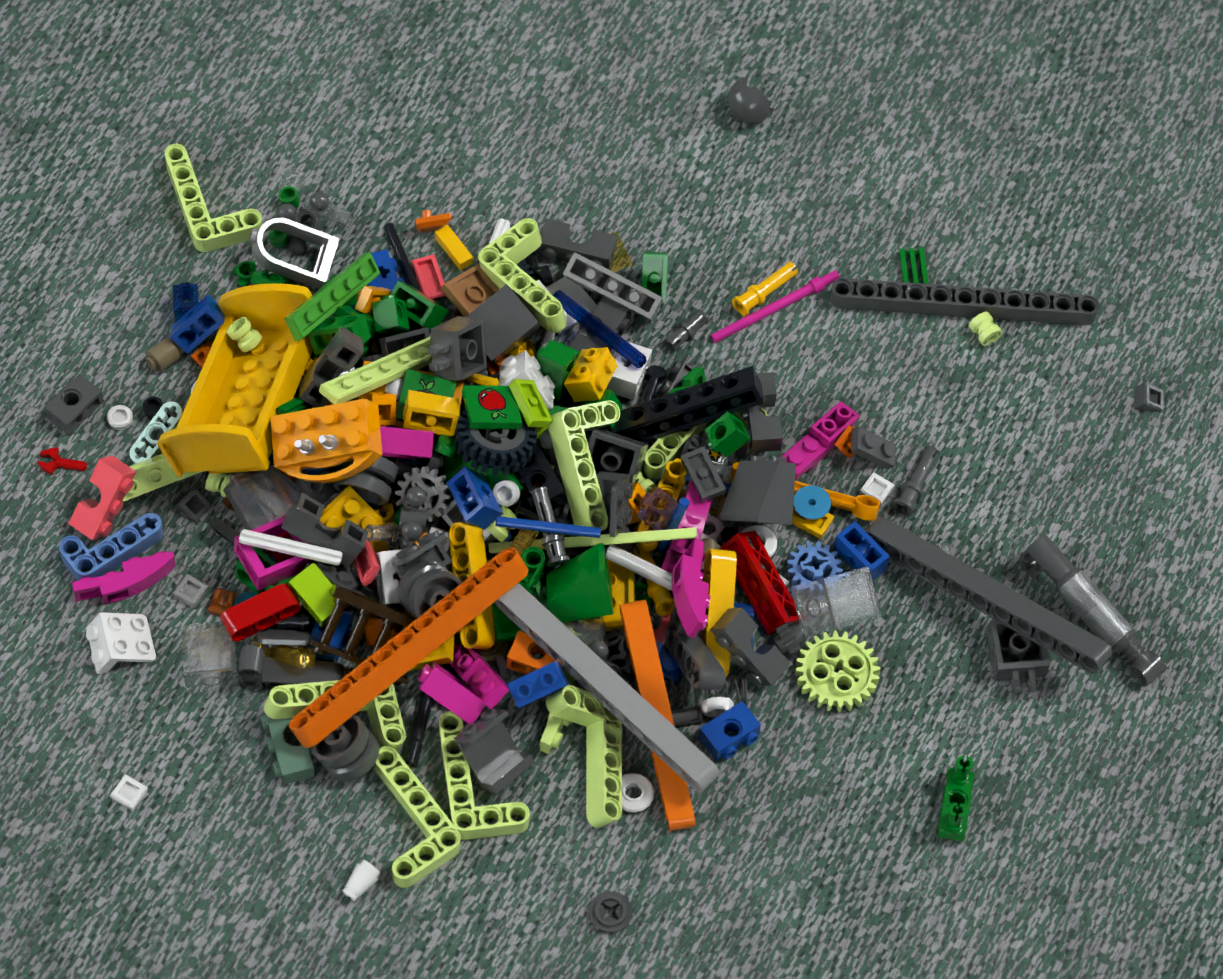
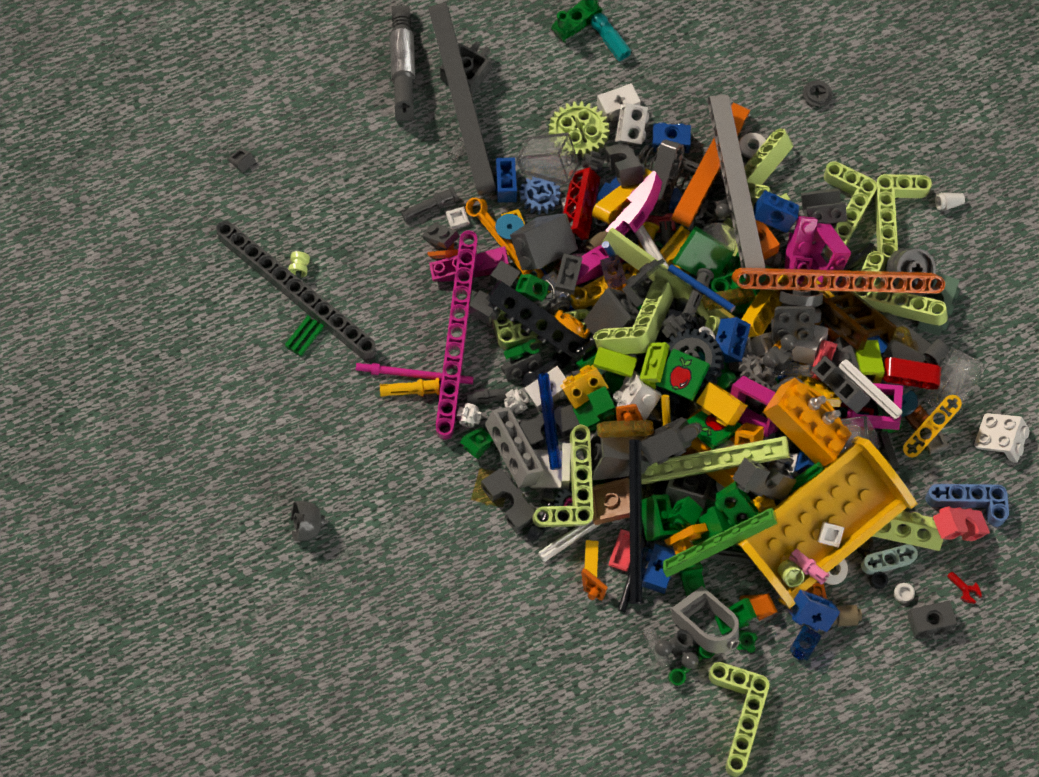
camera: 140 degrees left, 5 degrees up
(136, 577) = (967, 469): dark pink slope -> none
(196, 619) = (929, 423): none -> yellow beam
(229, 343) = (809, 566): none -> bright pink pin
(229, 388) = (830, 534): none -> white tile
(382, 239) = (635, 491): none -> black axle
(508, 325) = (625, 428): none -> clear yellow beam
(514, 348) = (628, 413): none -> orange piece
(543, 464) = (673, 325): none -> dark grey gear
(574, 393) = (615, 362): none -> lime panel
(622, 424) = (587, 347): none -> black pin
(654, 423) = (572, 324): none -> light orange tile
(657, 340) = (516, 400): none -> white gear
(684, 296) = (469, 415): none -> white gear
(765, 353) = (458, 343): none -> dark pink beam
(783, 706) = (626, 123): none -> white brick
(815, 745) = (611, 101): none -> white brick
(897, 809) = (610, 36): none -> teal piece

